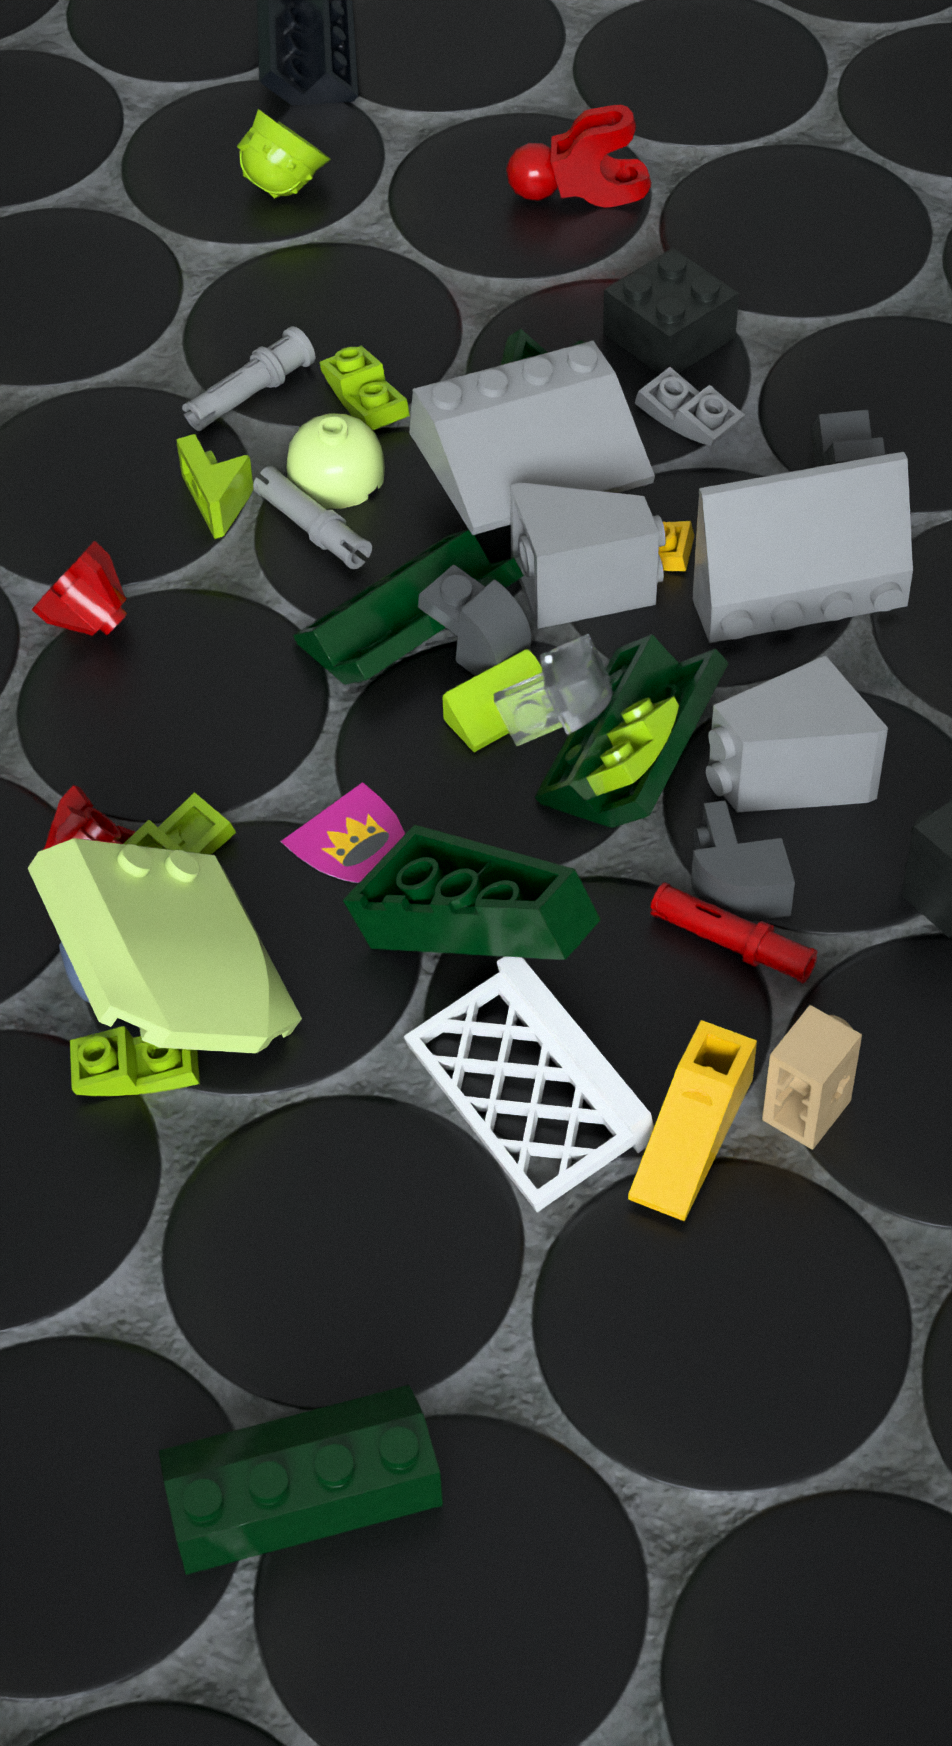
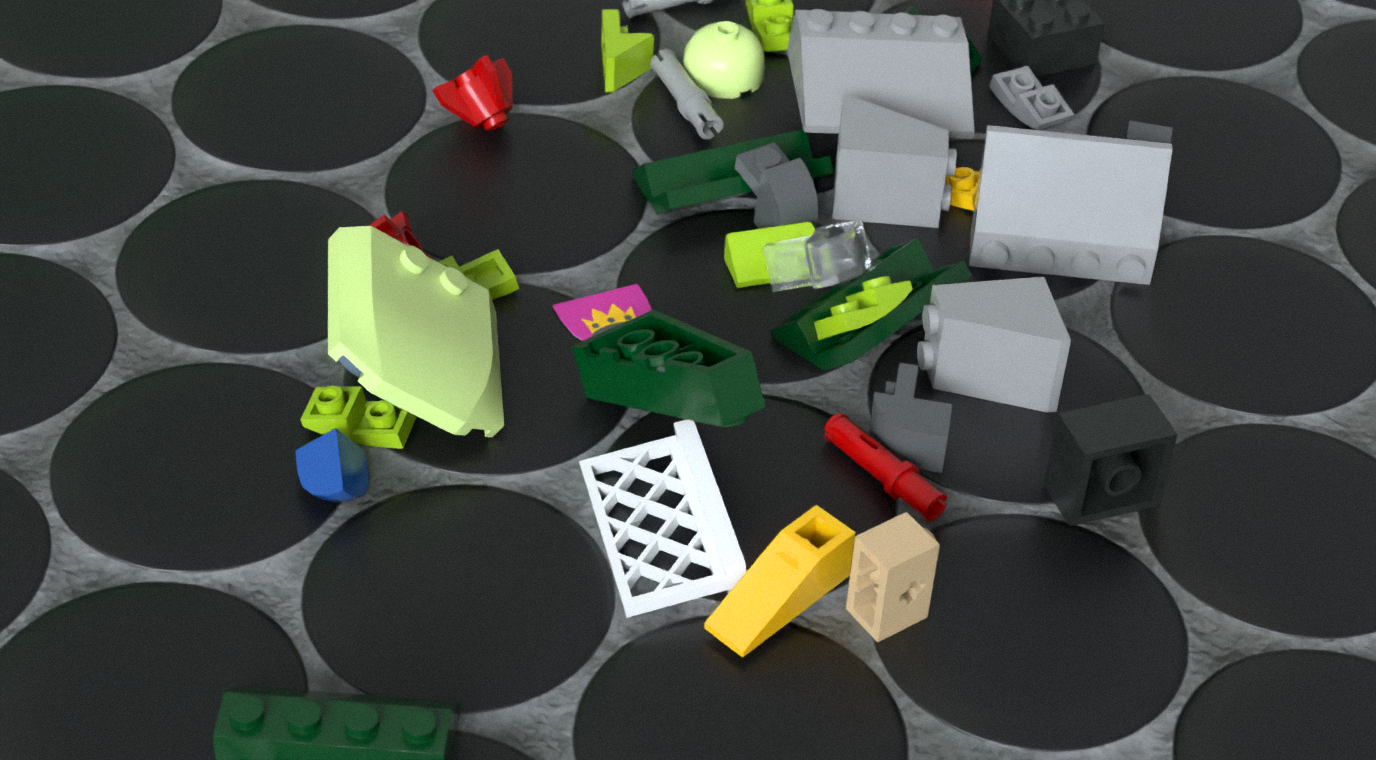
camera: 15 degrees right, 10 degrees down
(138, 1141) = (333, 468): none -> blue brick

